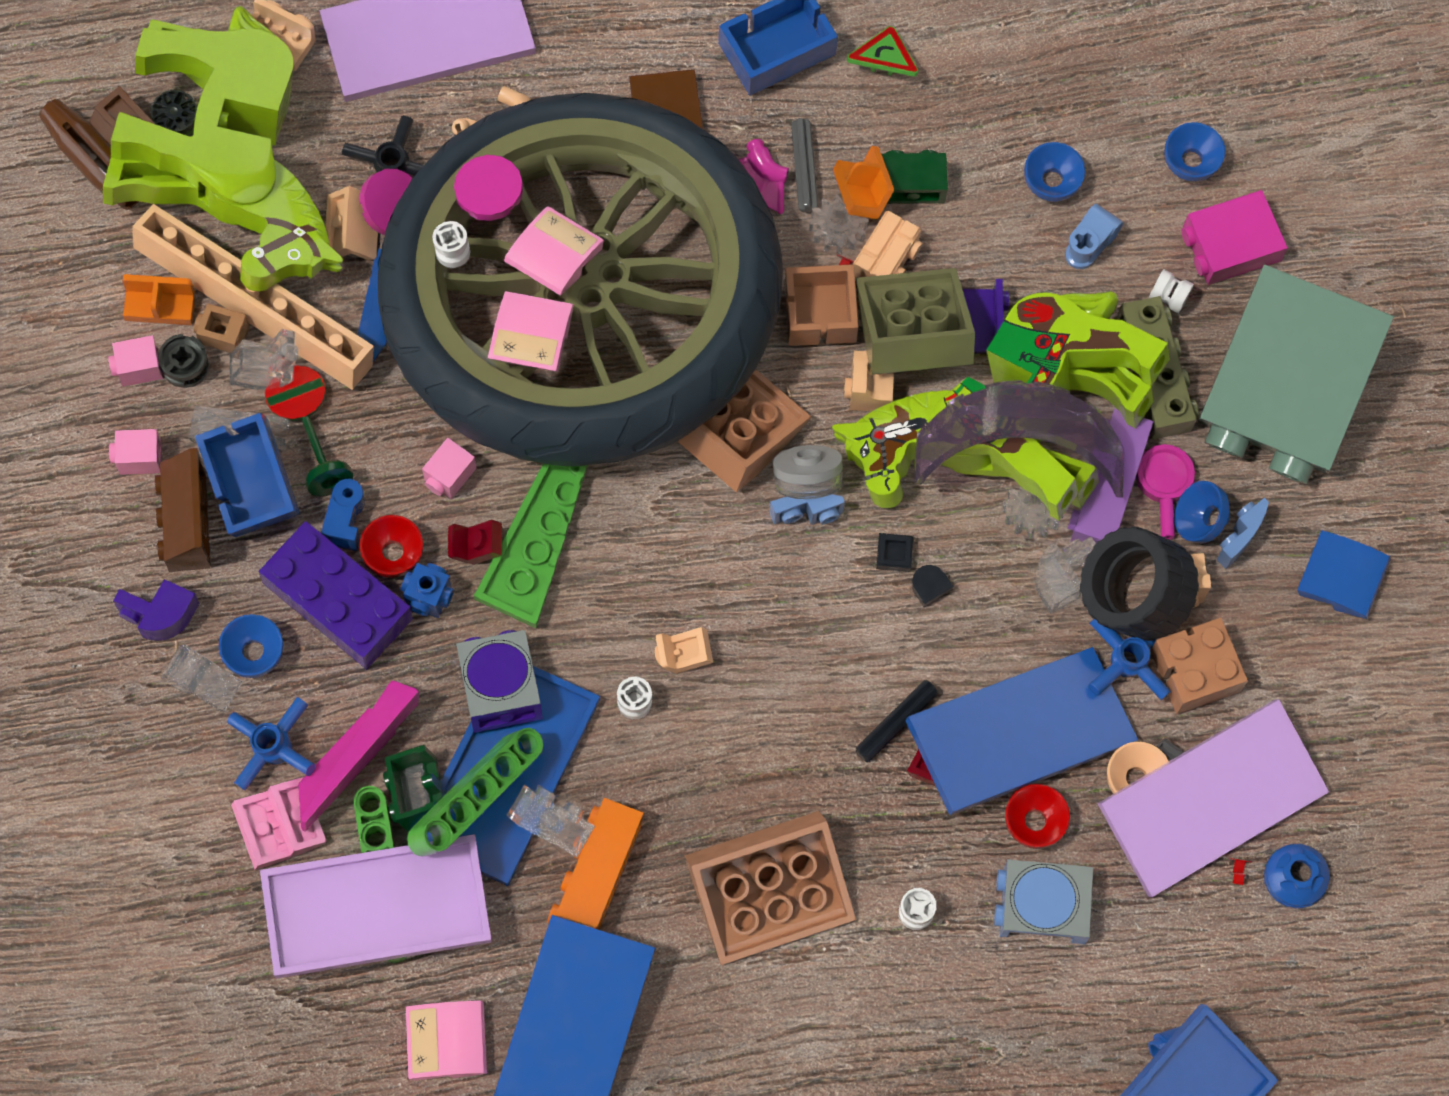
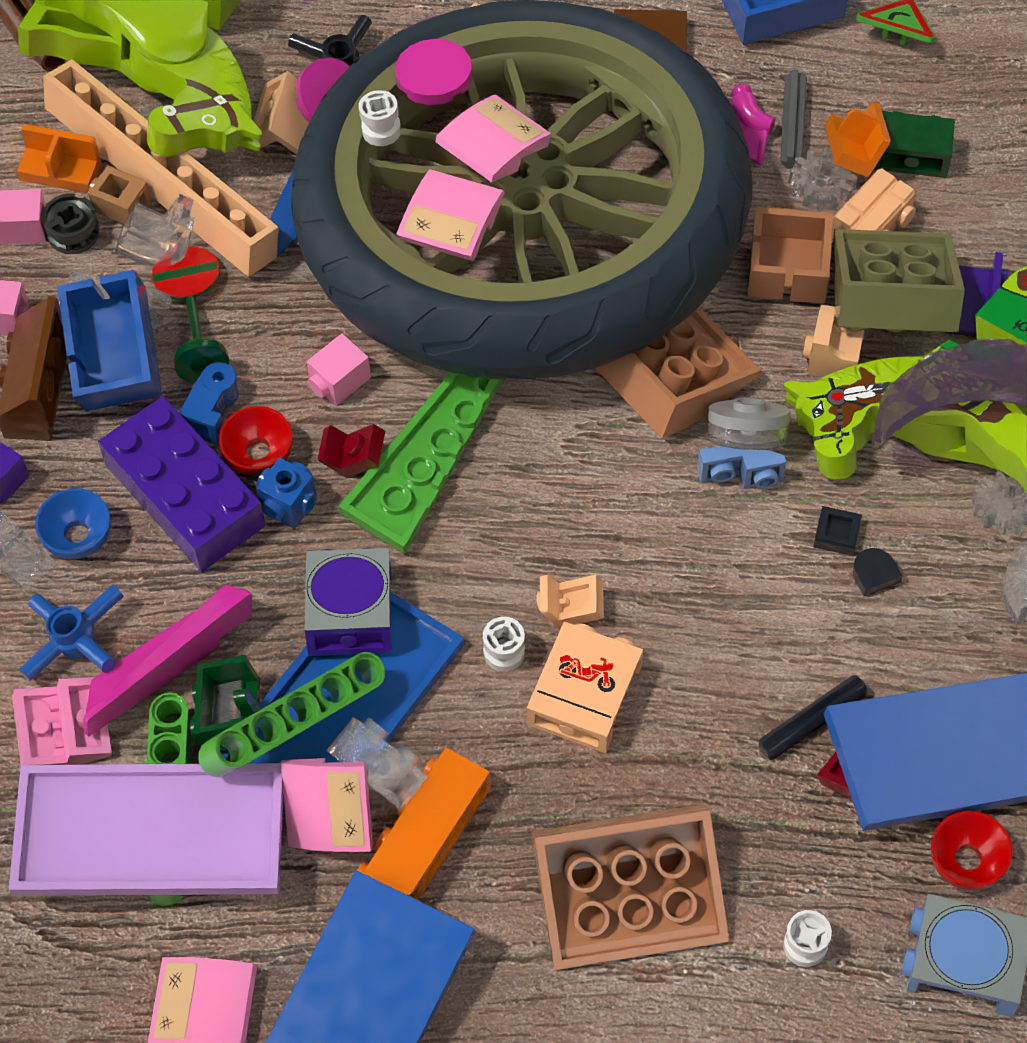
camera: 15 degrees right, 10 degrees down
(516, 863) = (327, 805): none -> bright pink slope
(707, 723) = (583, 686): none -> light nougat panel

